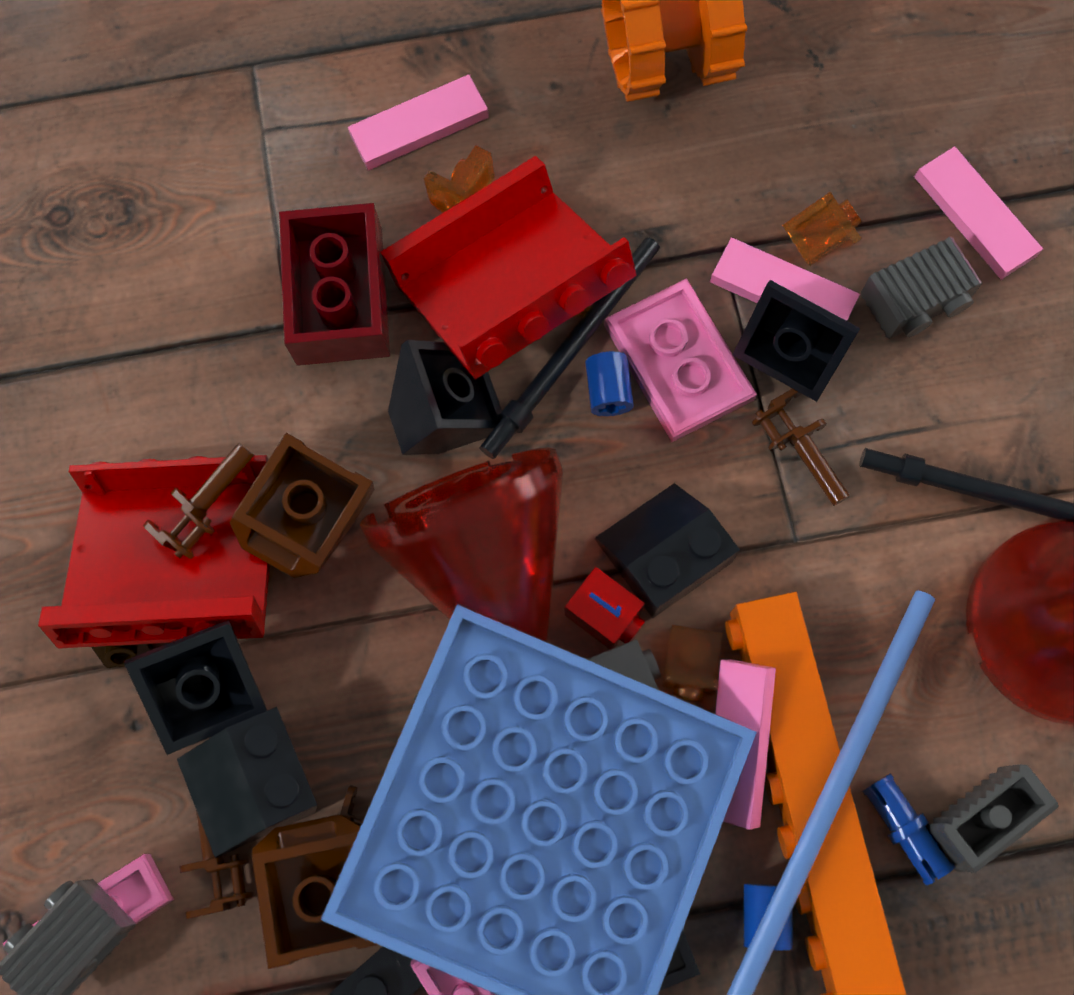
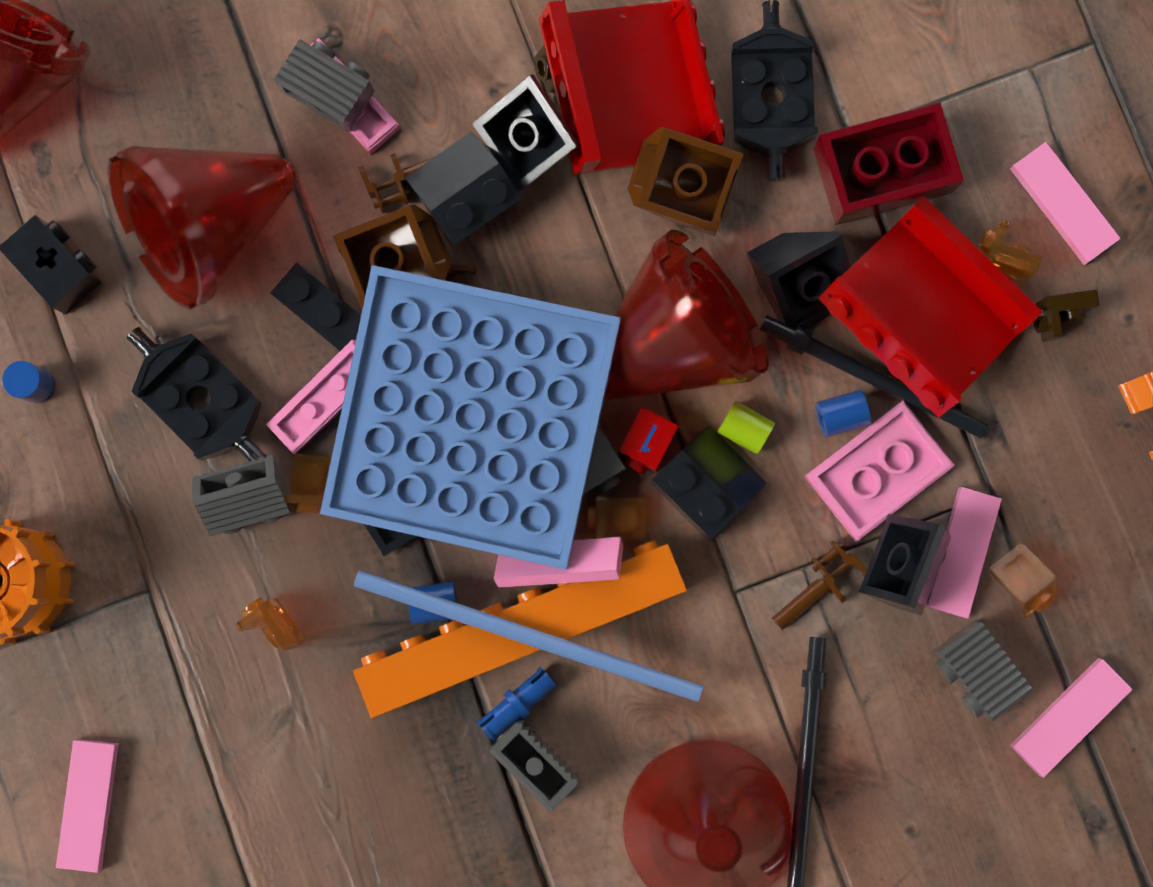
camera: 80 degrees right, 10 degrees up
(187, 378) = (778, 60): none -> black plate
(196, 507) = (670, 97): reddish brown piece -> none
(534, 138) = (1067, 306): none -> dark brown bracket
(607, 493) = (746, 427): none -> lime piece

